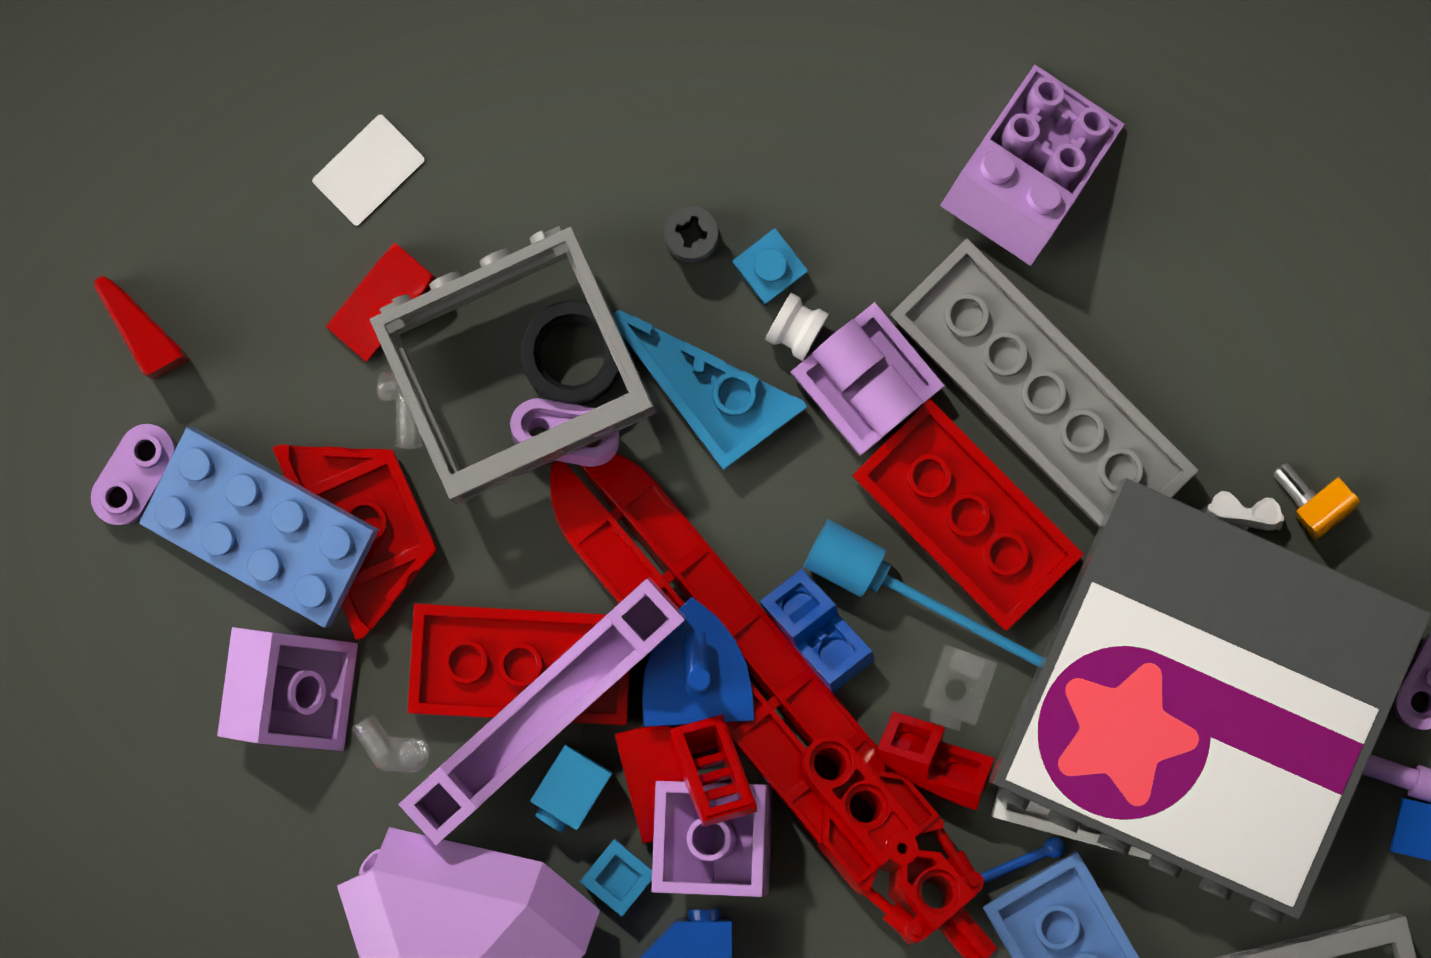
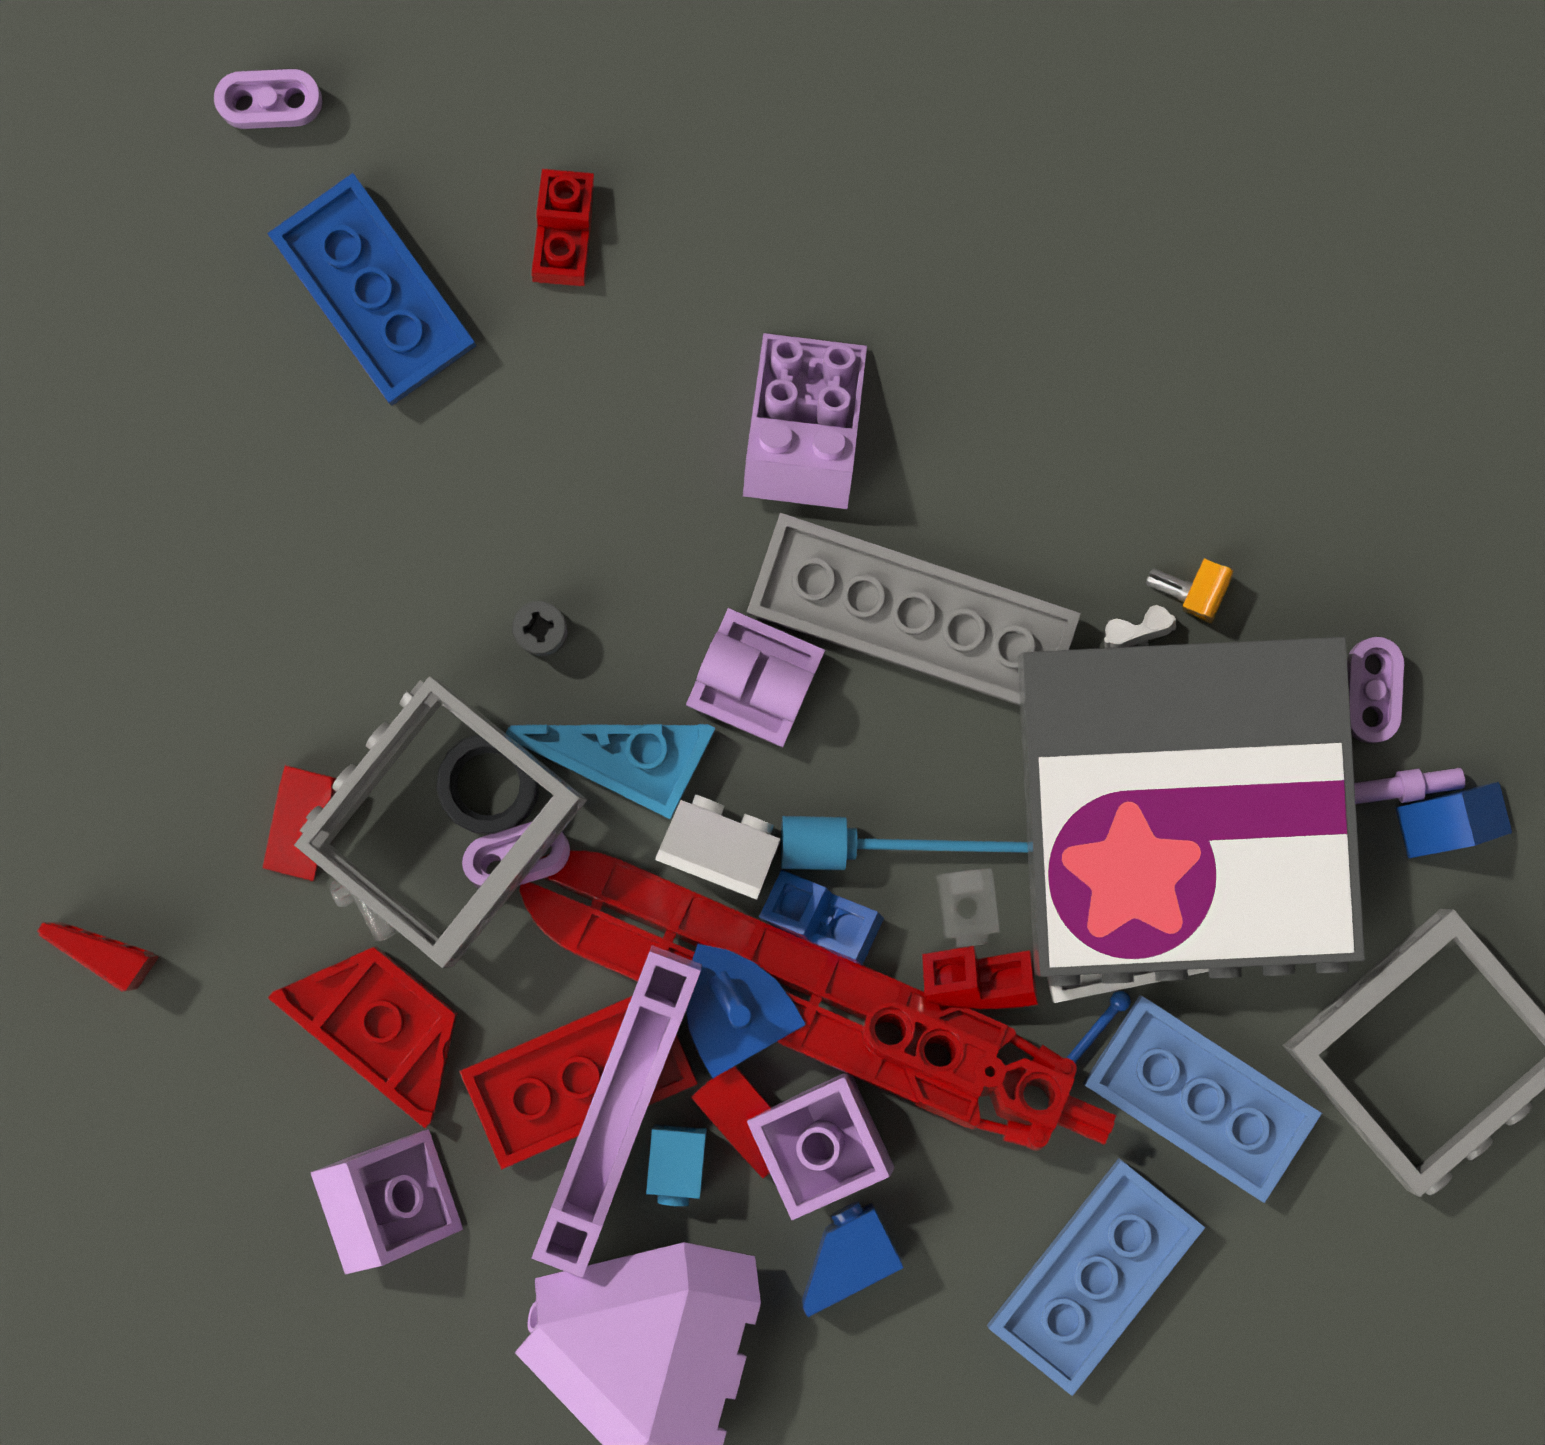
camera: 30 degrees left, 0 degrees up
(132, 474) = (161, 1082): lavender plate -> none
(259, 526) = (290, 1072): medium blue plate -> none
(368, 170) = (232, 713): white sticker -> none
(391, 753) = (505, 1210): clear arm -> none
(617, 877) = (756, 1219): dark azure plate -> none
(704, 736) = (766, 1064): red slope -> none
(756, 518) = (719, 847): none -> white slope
(769, 266) = (622, 622): dark azure plate -> none
(796, 326) = (671, 663): white wheel -> none
(967, 515) = (901, 752): red plate -> none

